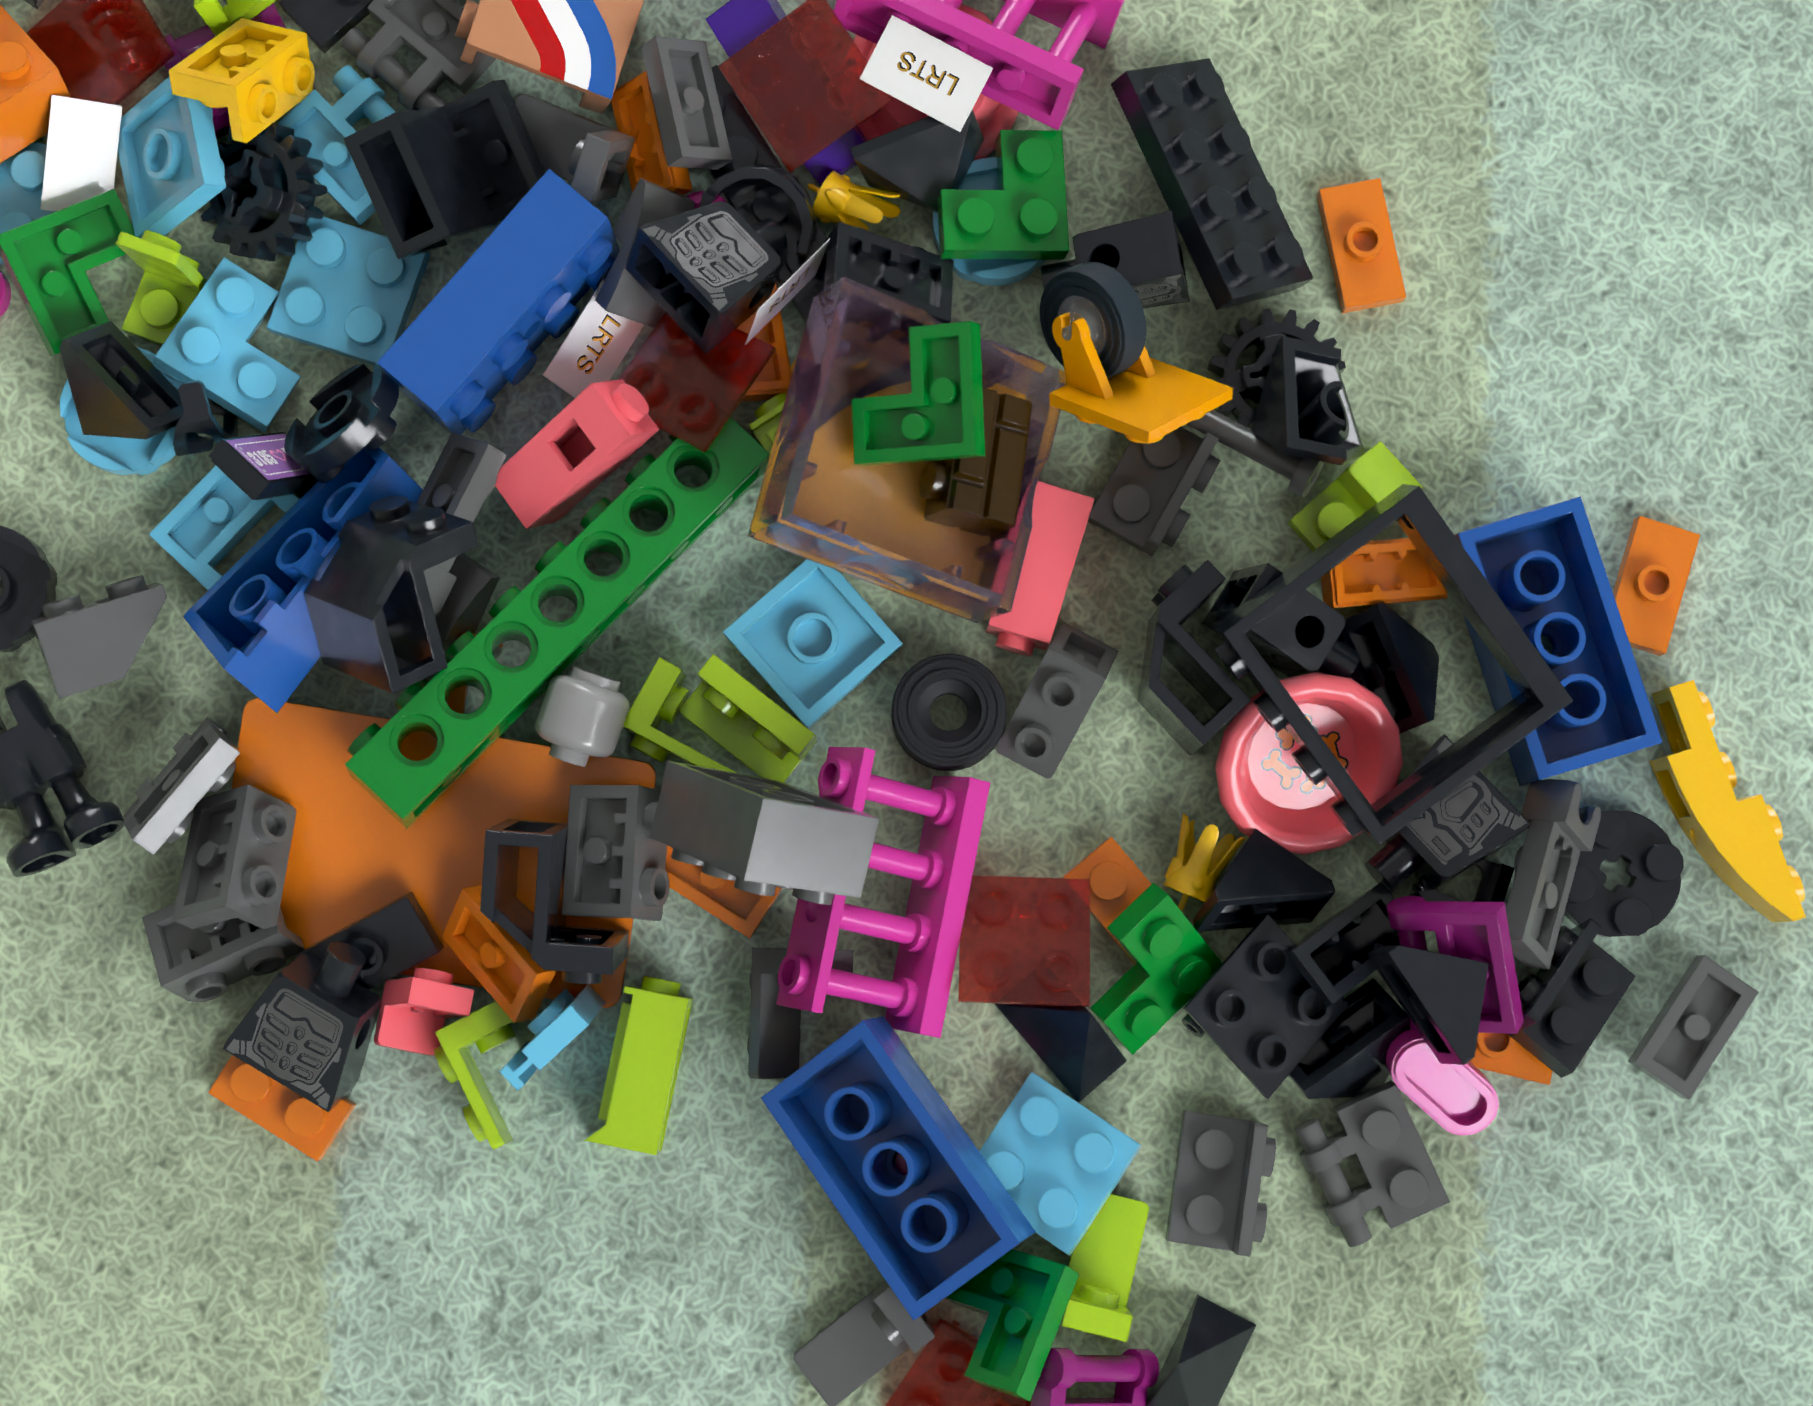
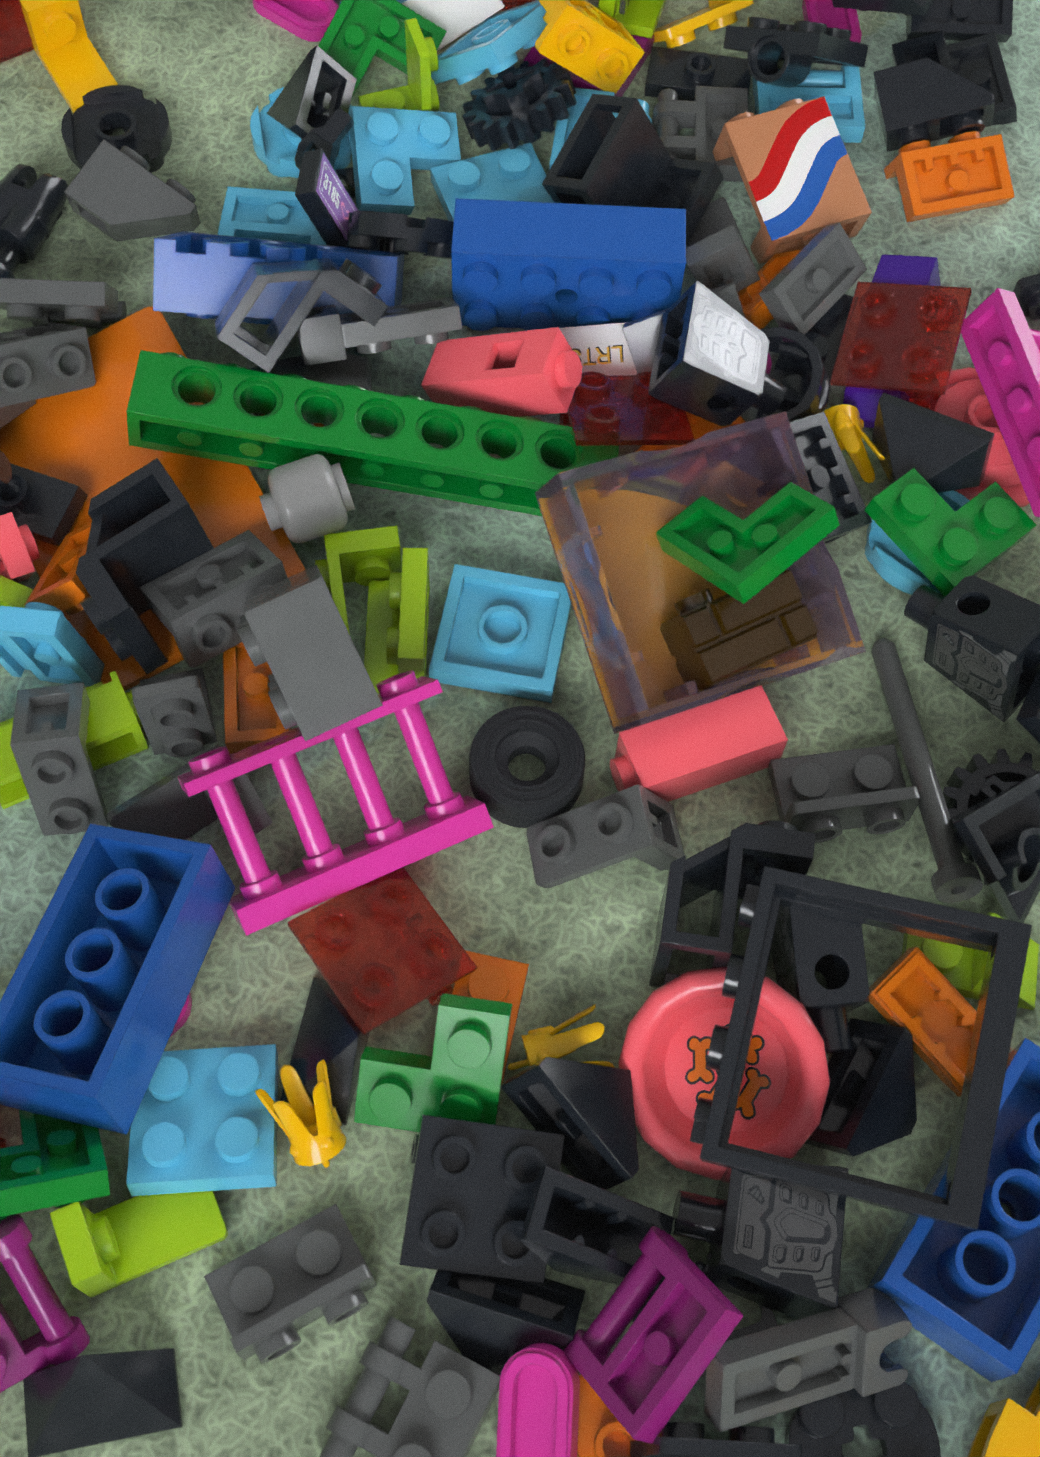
camera: 55 degrees right, 20 degrees down
(671, 1082) = (54, 759): none -> dark grey bracket
(684, 954) = (176, 712): none -> dark grey bracket
(787, 291) = (725, 408): white sticker -> none
(926, 73) = (985, 392): white sticker -> none
(1111, 381) = (911, 641): plate -> none
(1122, 1090) = (310, 1127): none -> yellow piece
(1439, 996) = (612, 1329): black slope -> none

